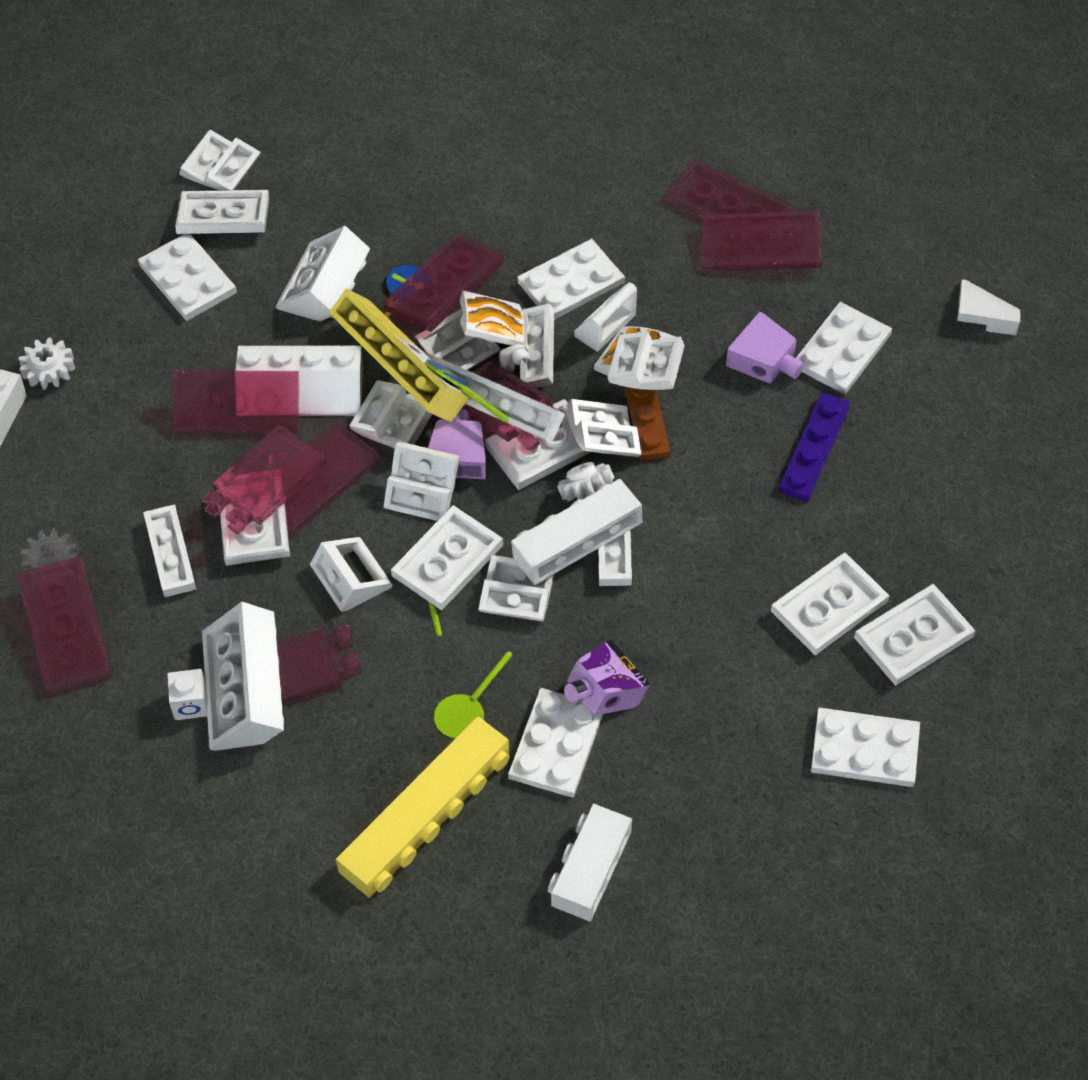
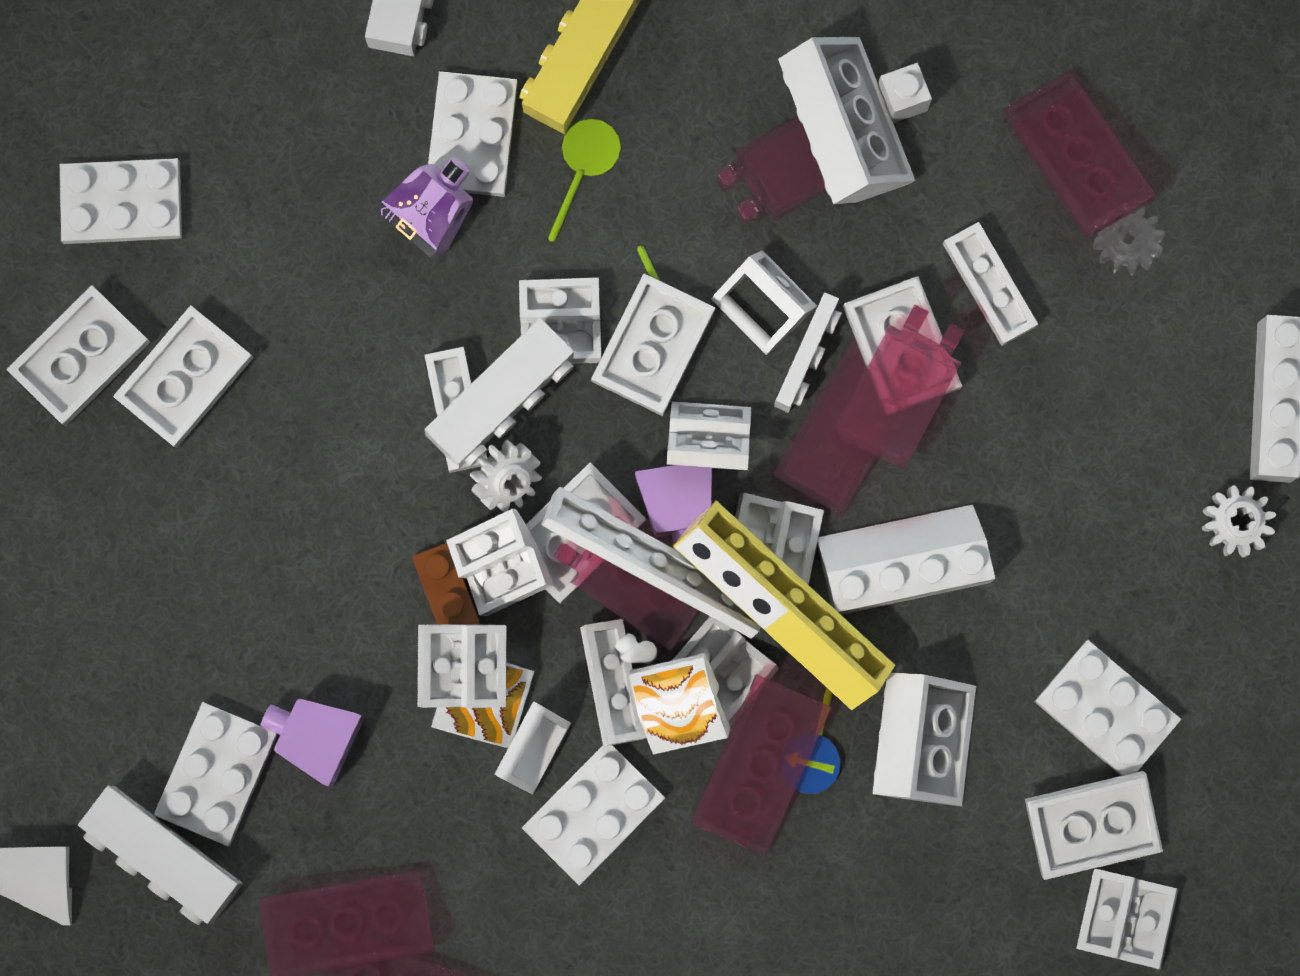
camera: 170 degrees right, 25 degrees up
(235, 401) = (974, 506): clear pink tile -> none
(328, 525) = (809, 353): none -> white plate
(447, 374) = (702, 564): lime piece -> none
(814, 447) = (231, 608): dark purple plate -> none
(890, 302) = (159, 855): none -> white brick

